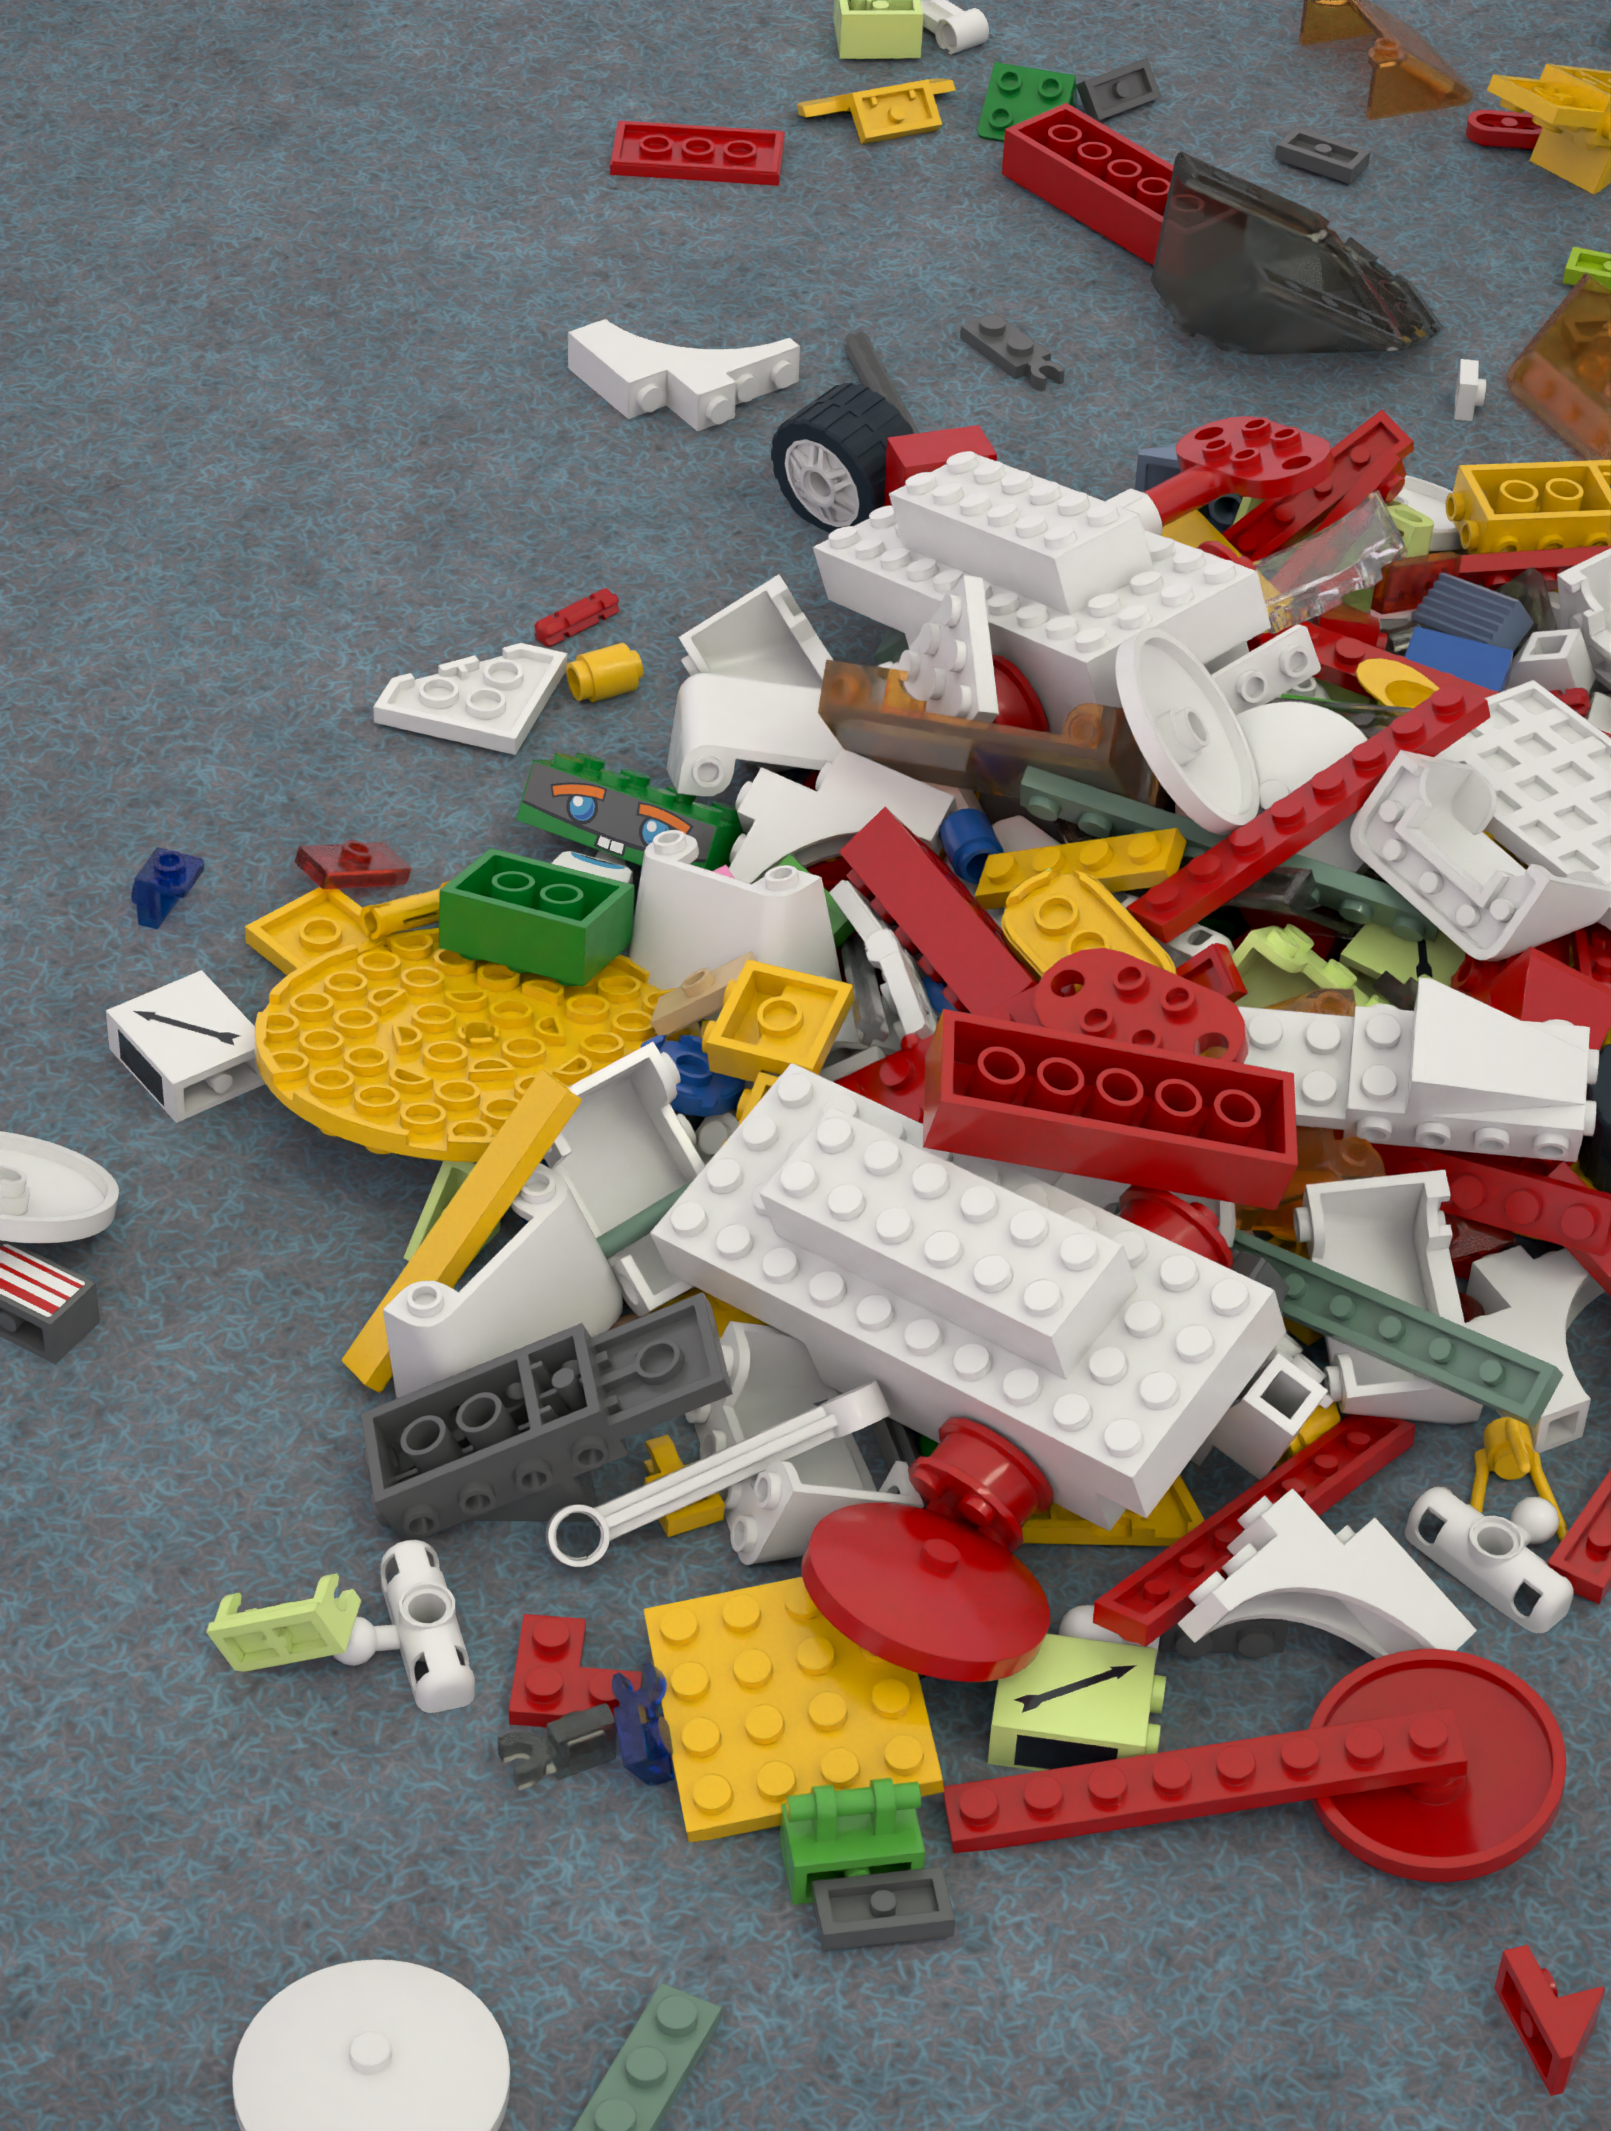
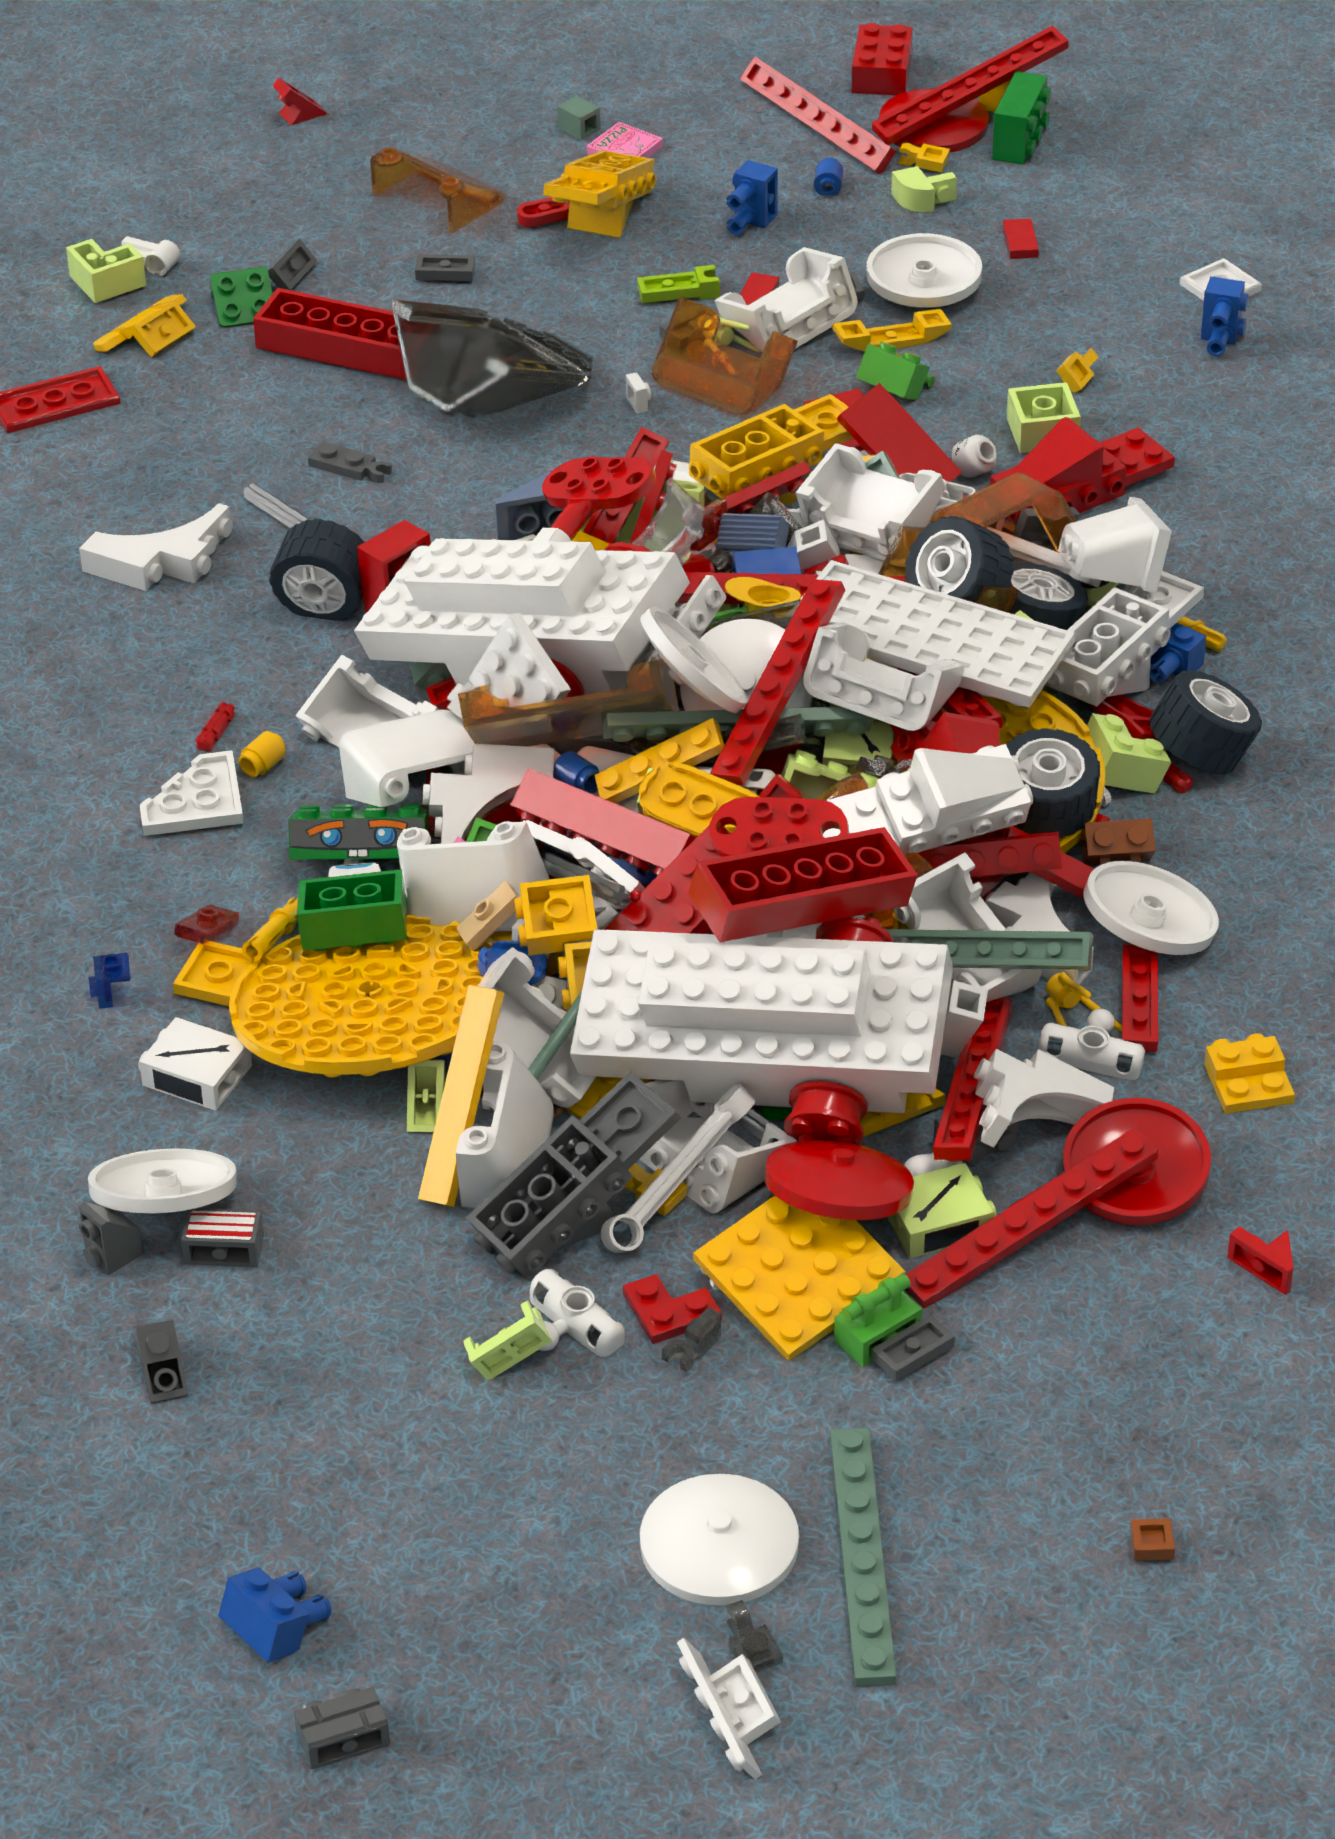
camera: 25 degrees left, 0 degrees up
(641, 1734) = (737, 1316): clear blue plate -> none

